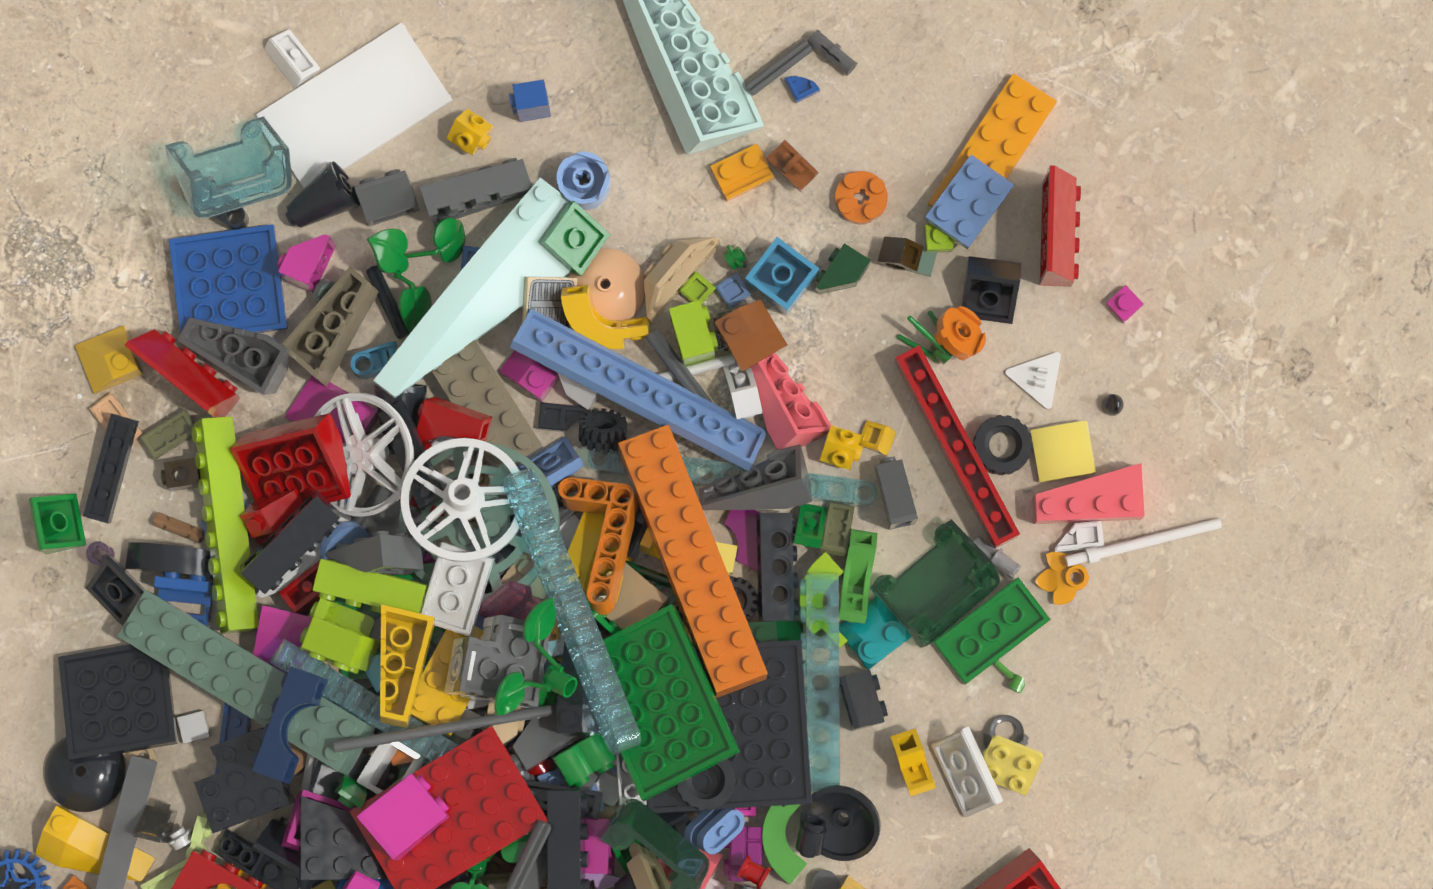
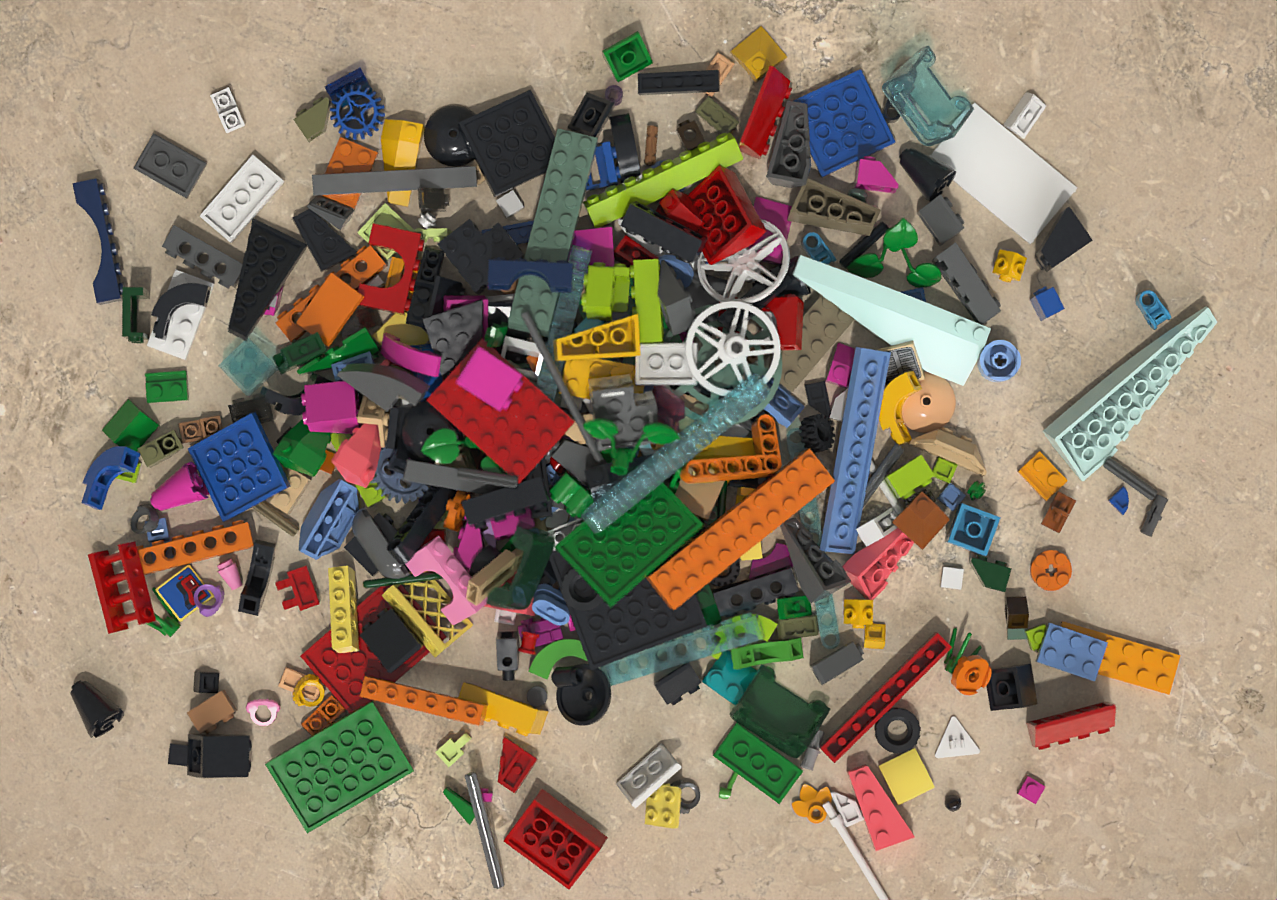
camera: 65 degrees right, 5 degrees up
(460, 58) = (1062, 240): none -> black slope
(575, 238) = (953, 368): plate -> none
(834, 320) = (952, 578): none -> white tile
(912, 762) = (643, 734): yellow brick -> none

